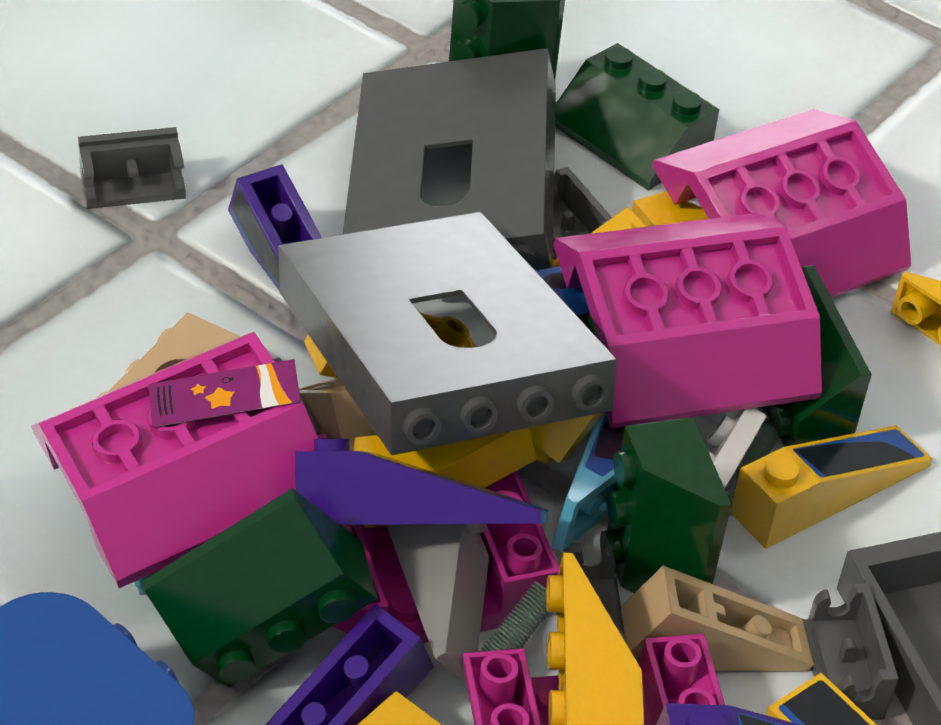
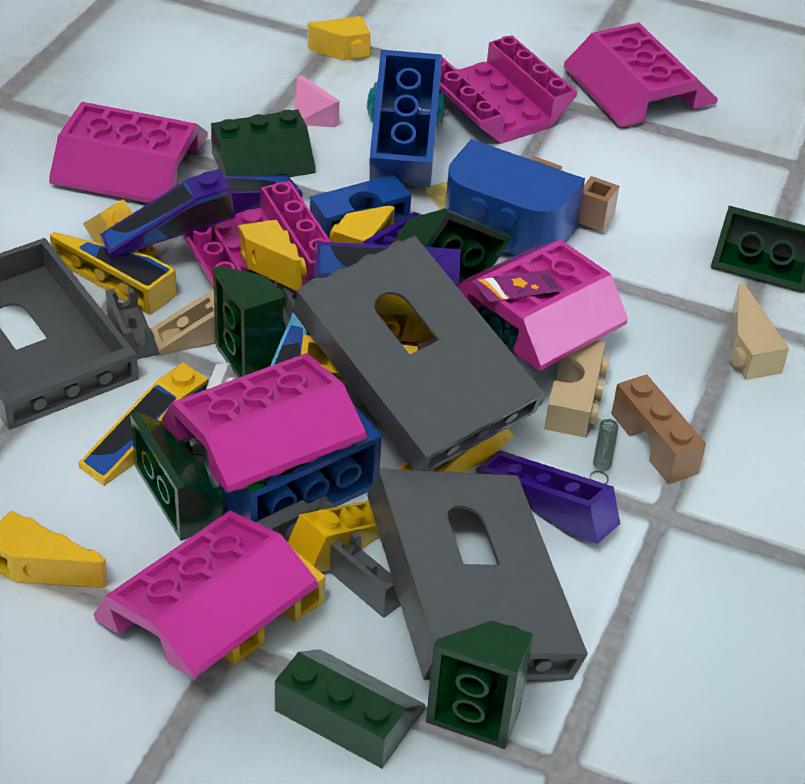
camera: 165 degrees right, 0 degrees up
(95, 300) = (674, 443): none -> medium nougat arch
(131, 167) = (710, 547): dark grey hinge -> none
(193, 310) = (601, 435): none -> sand green piece

